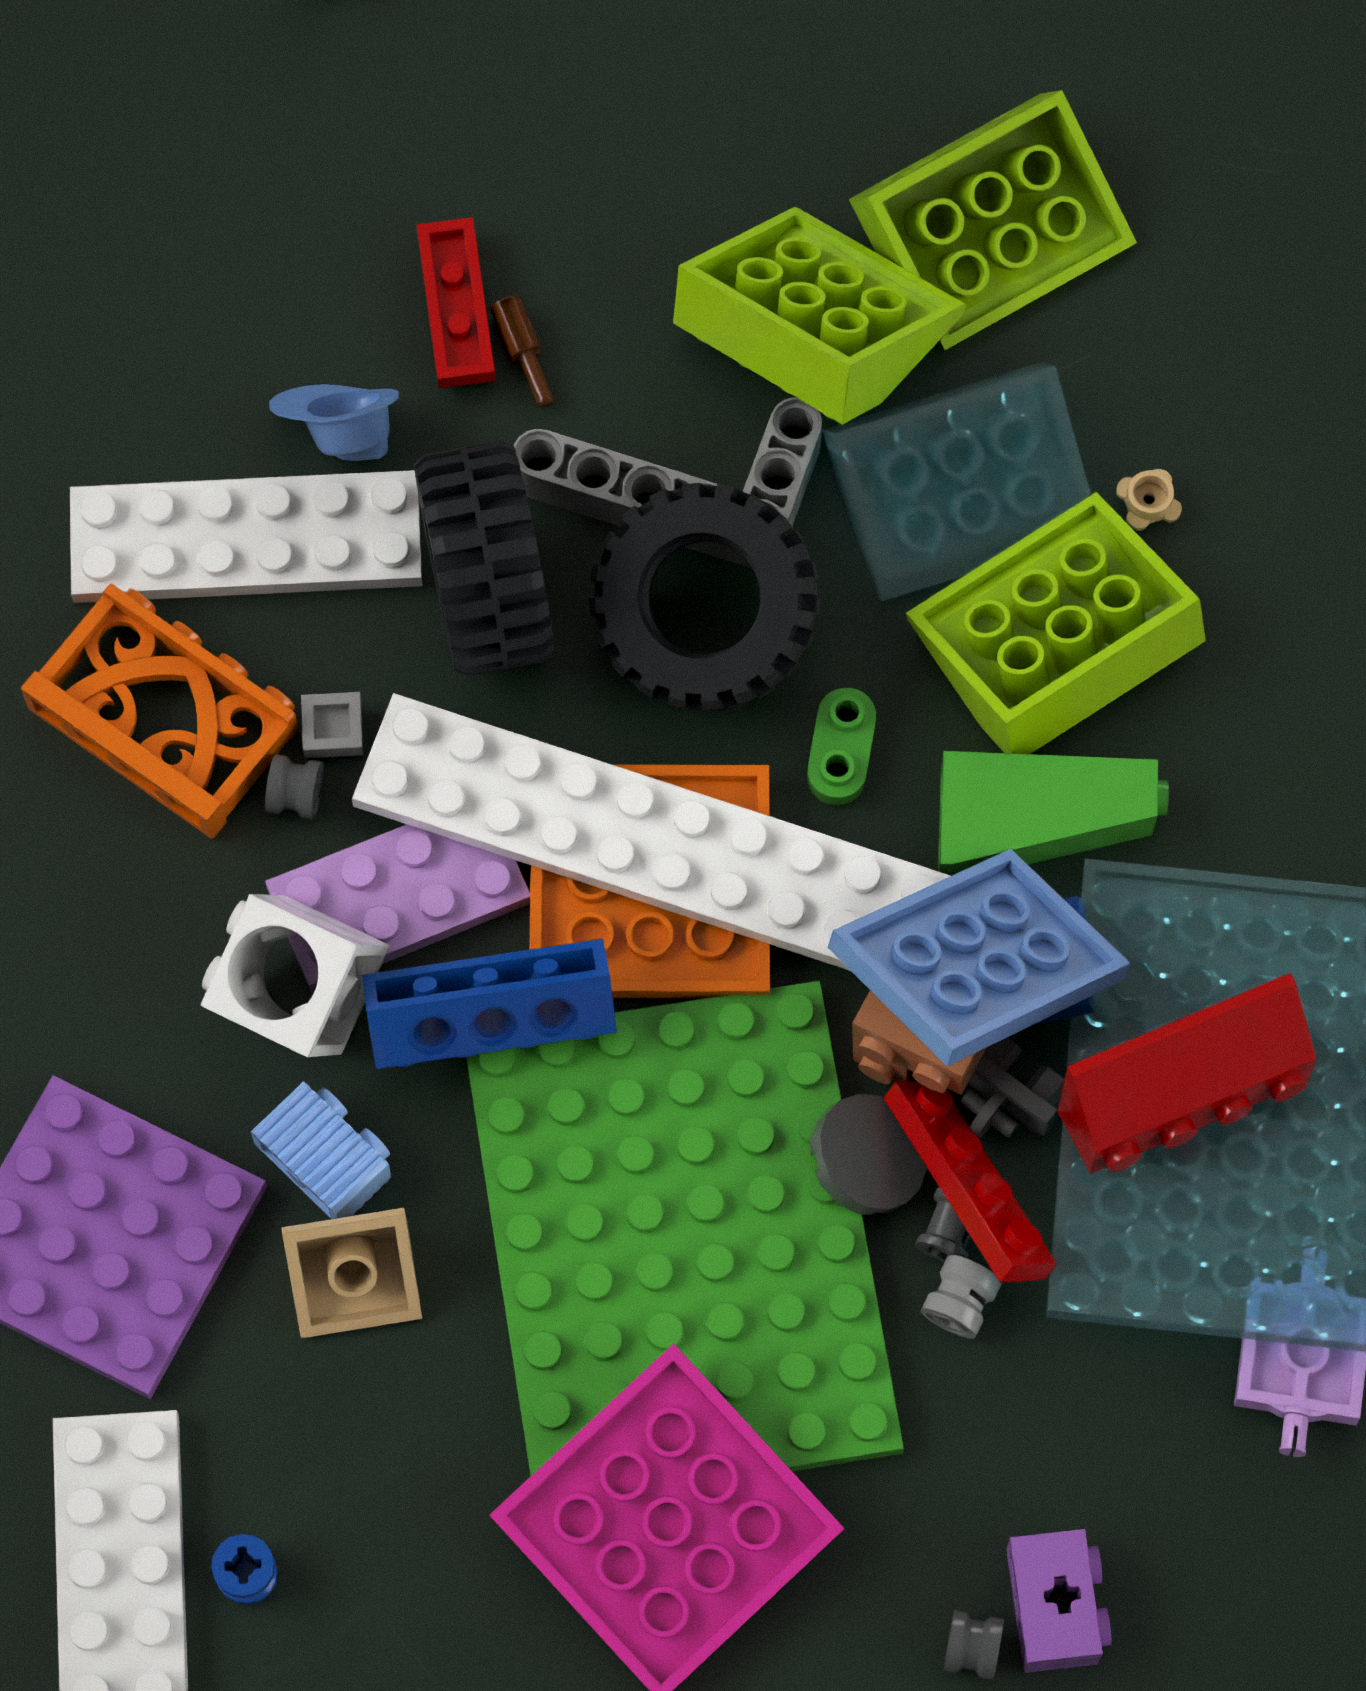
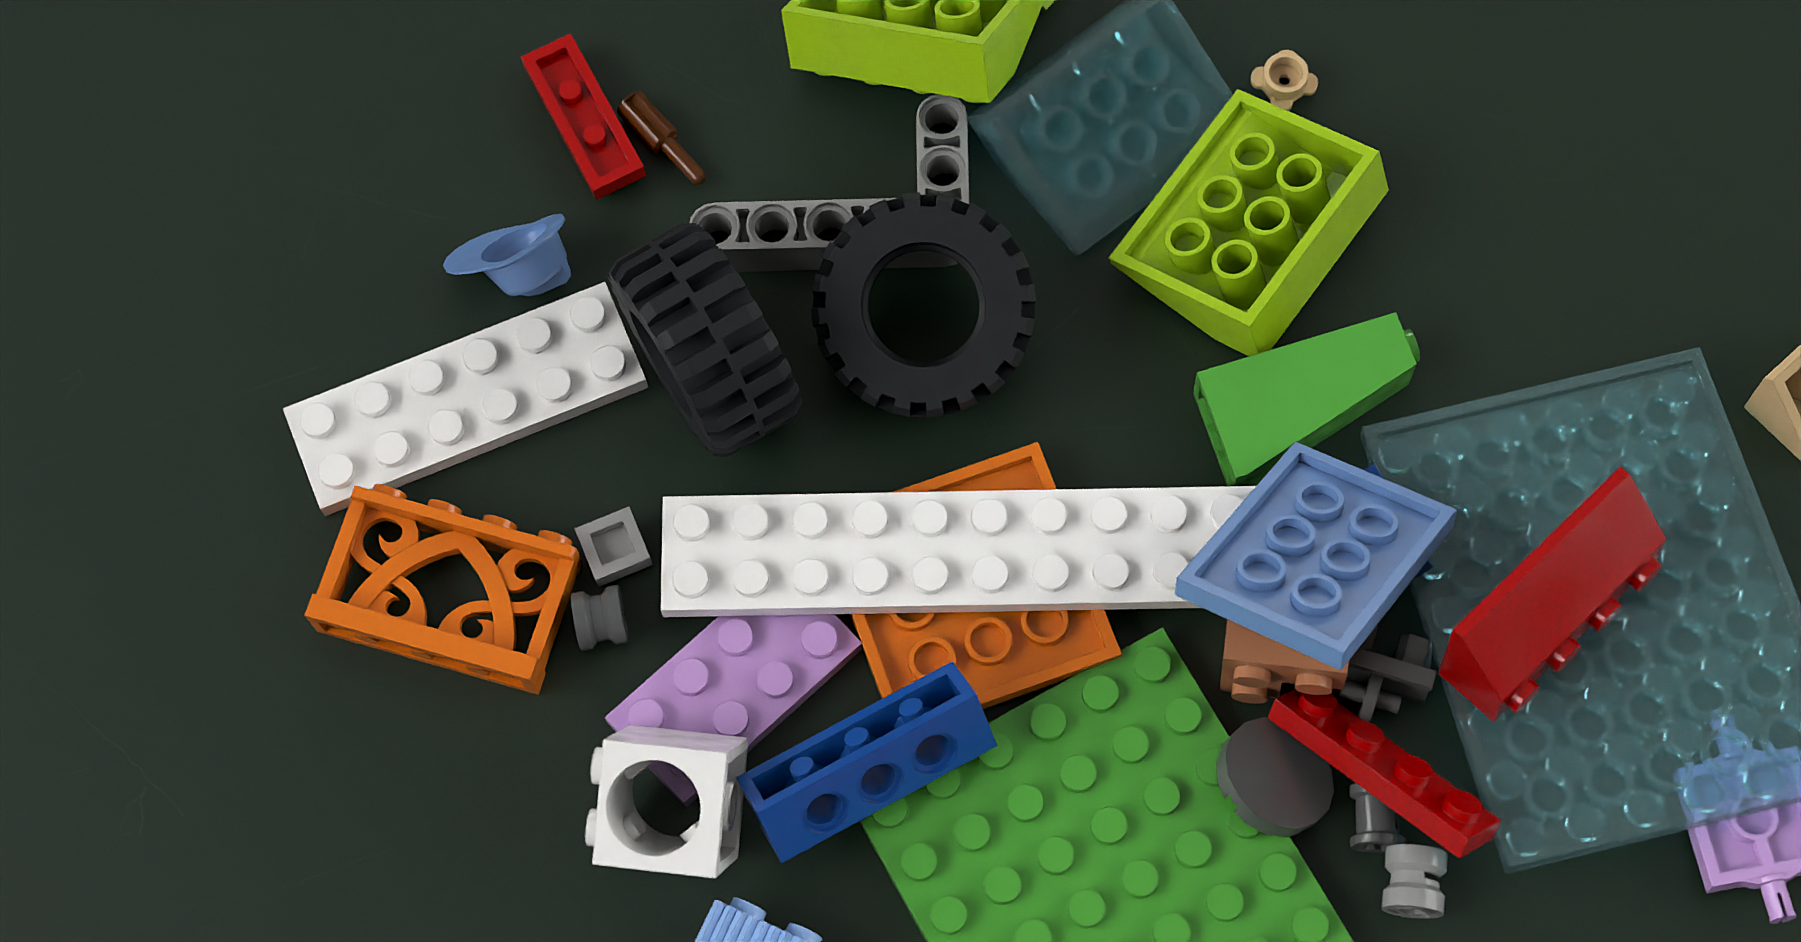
camera: 15 degrees left, 0 degrees up
(841, 743) = (1095, 398): bright green plate -> none

